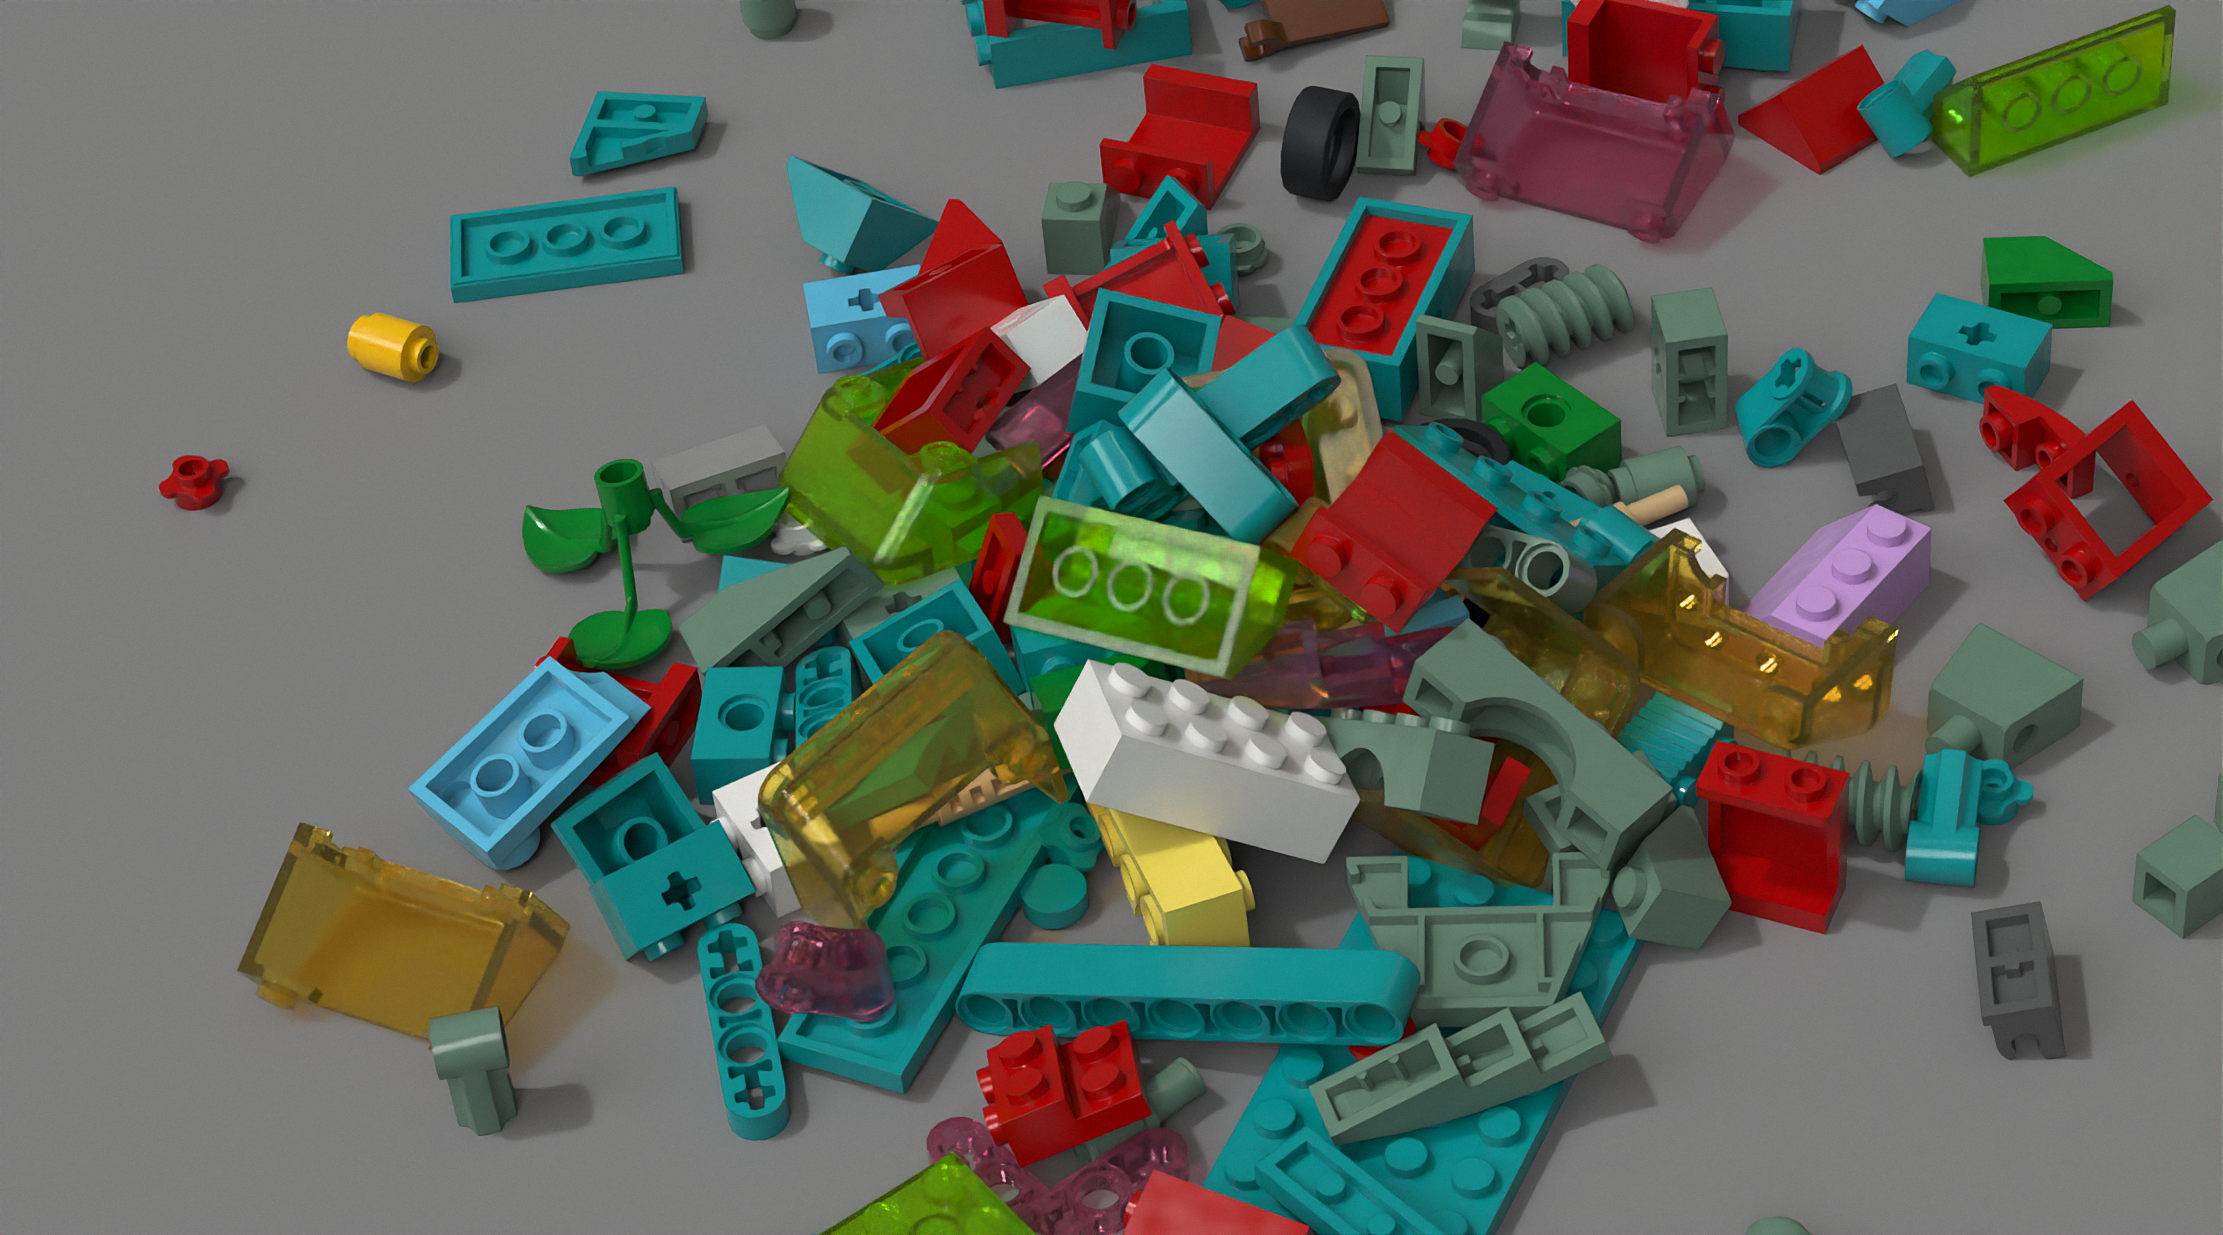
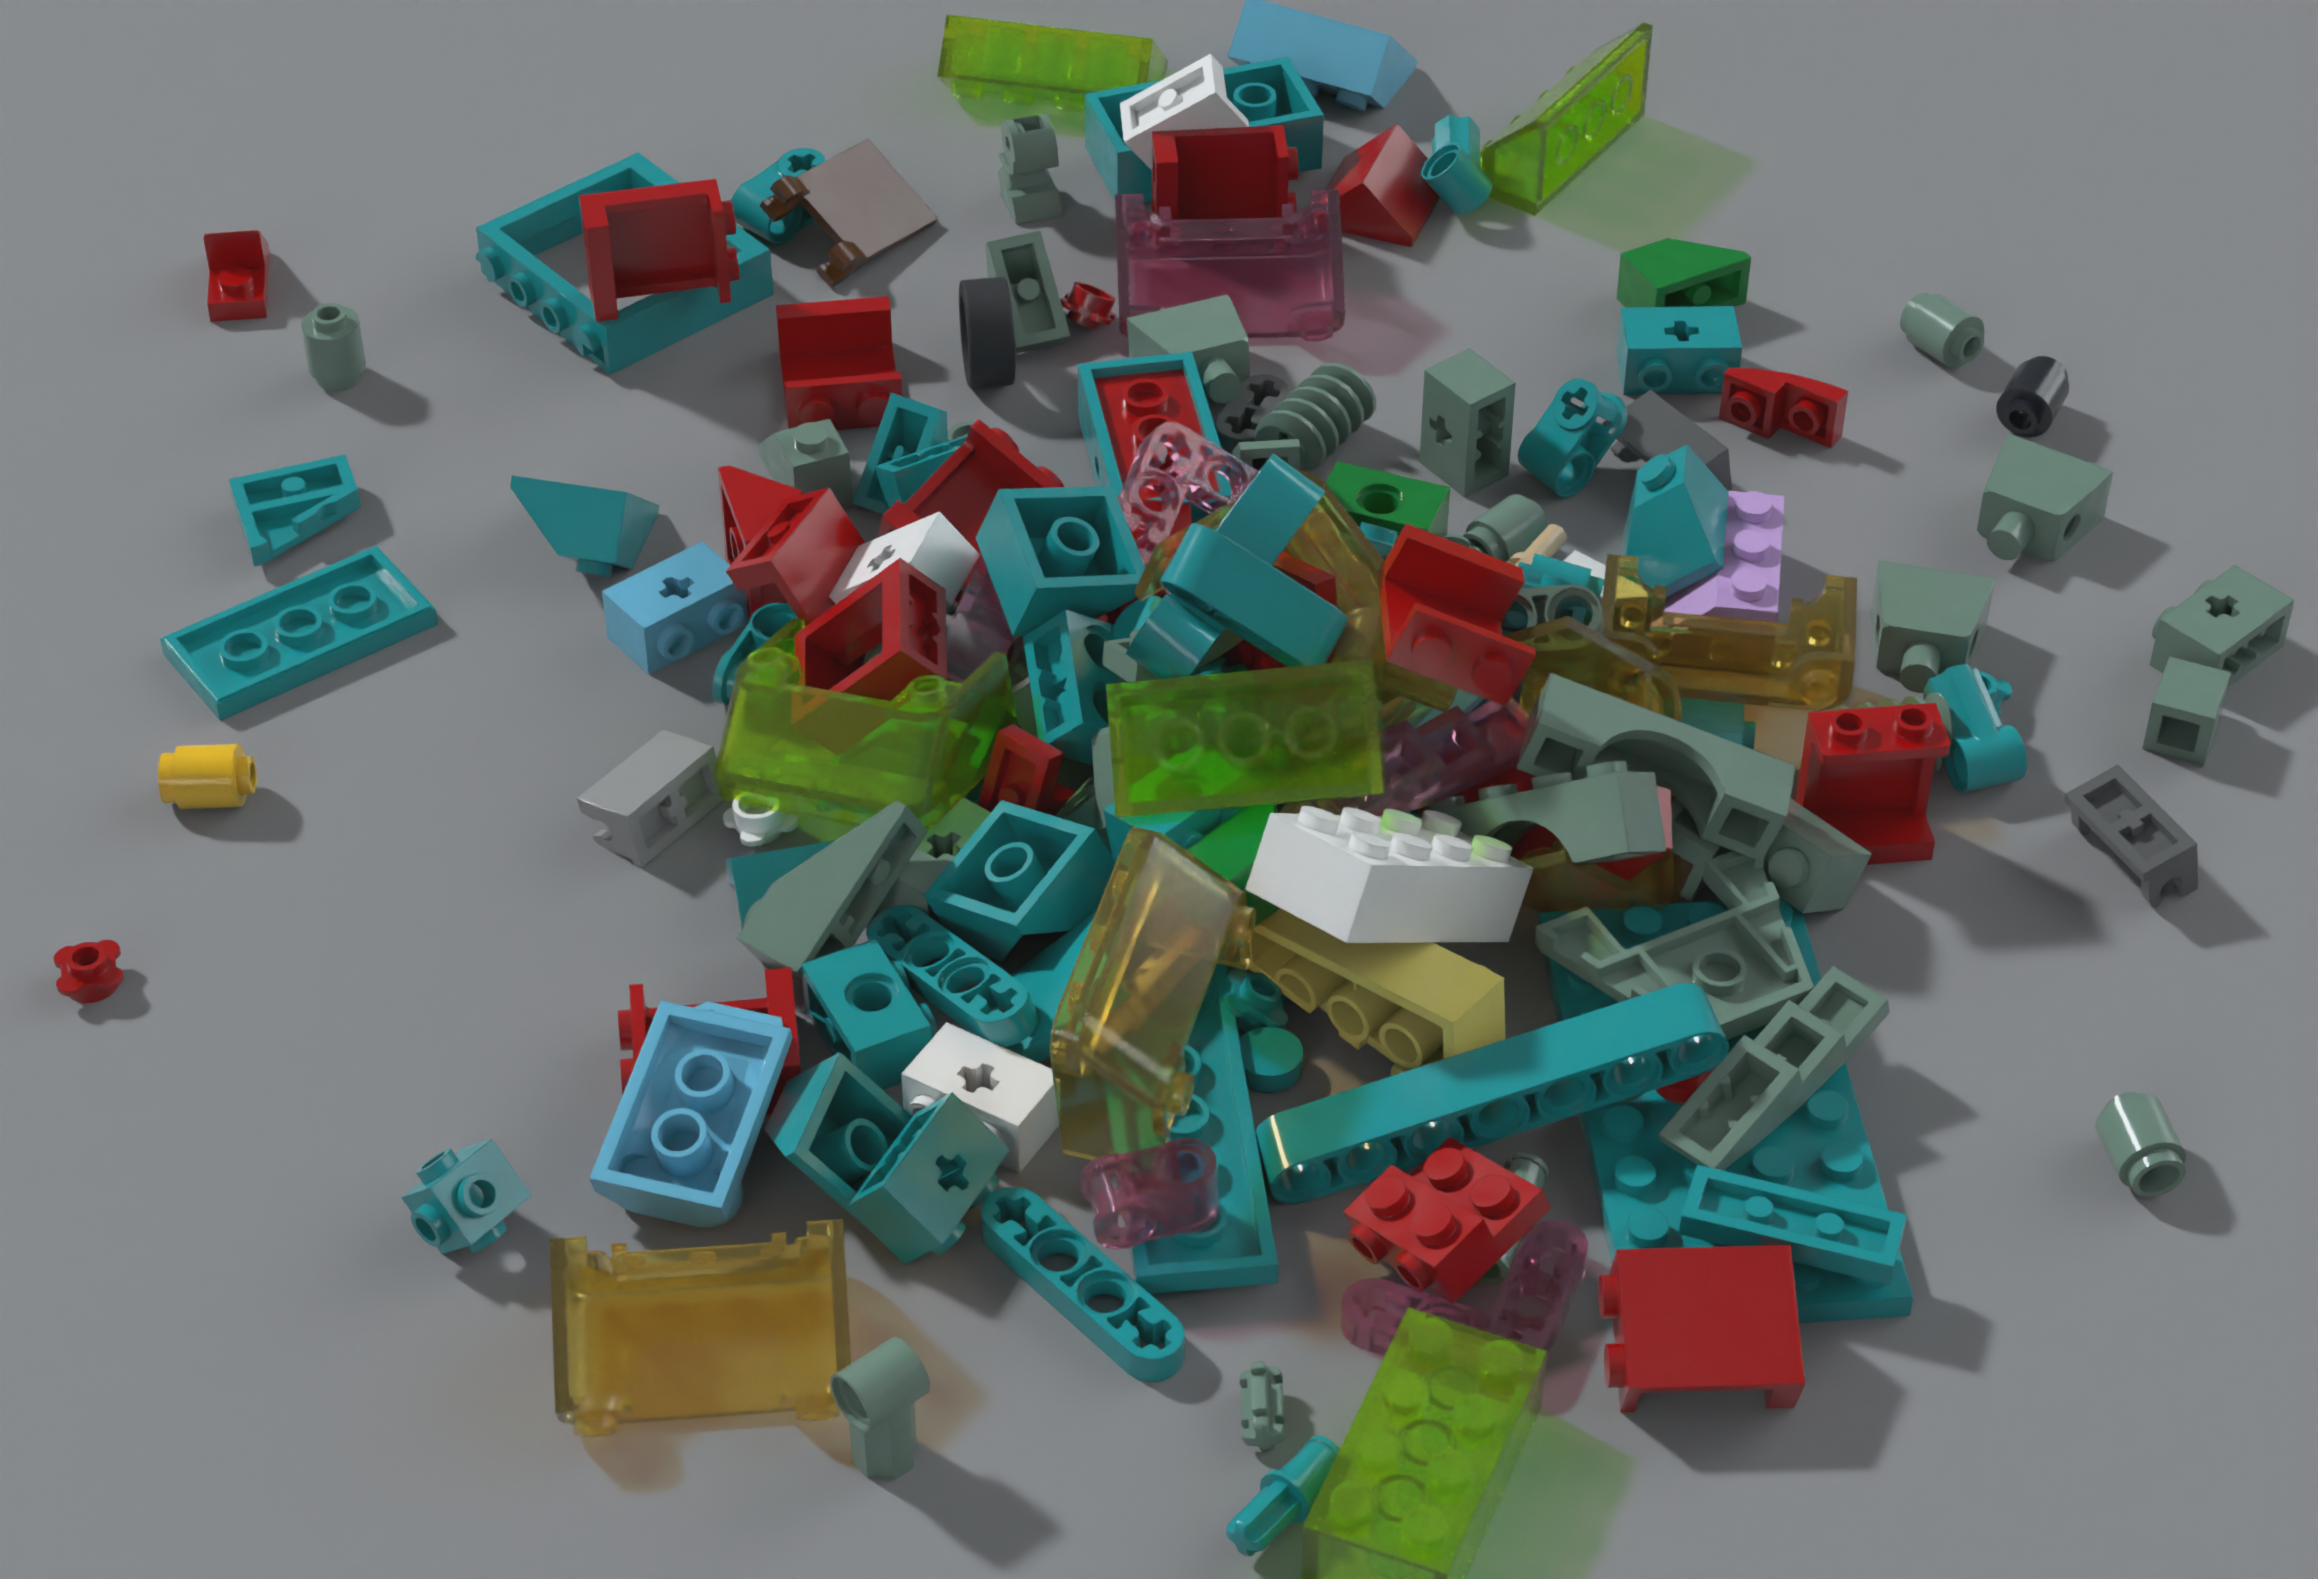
camera: 35 degrees left, 0 degrees up
(331, 755) = (465, 1197): none -> teal brick
(574, 537) = (544, 893): green plant -> none
(802, 1193) = (1262, 1406): none -> sand green piece
(1347, 331) = (1182, 480): none -> clear pink beam
(1513, 212) = (1208, 331): none -> sand green torso
(1796, 521) = (1676, 521): none -> teal slope
(2148, 472) = (1916, 409): red window -> none

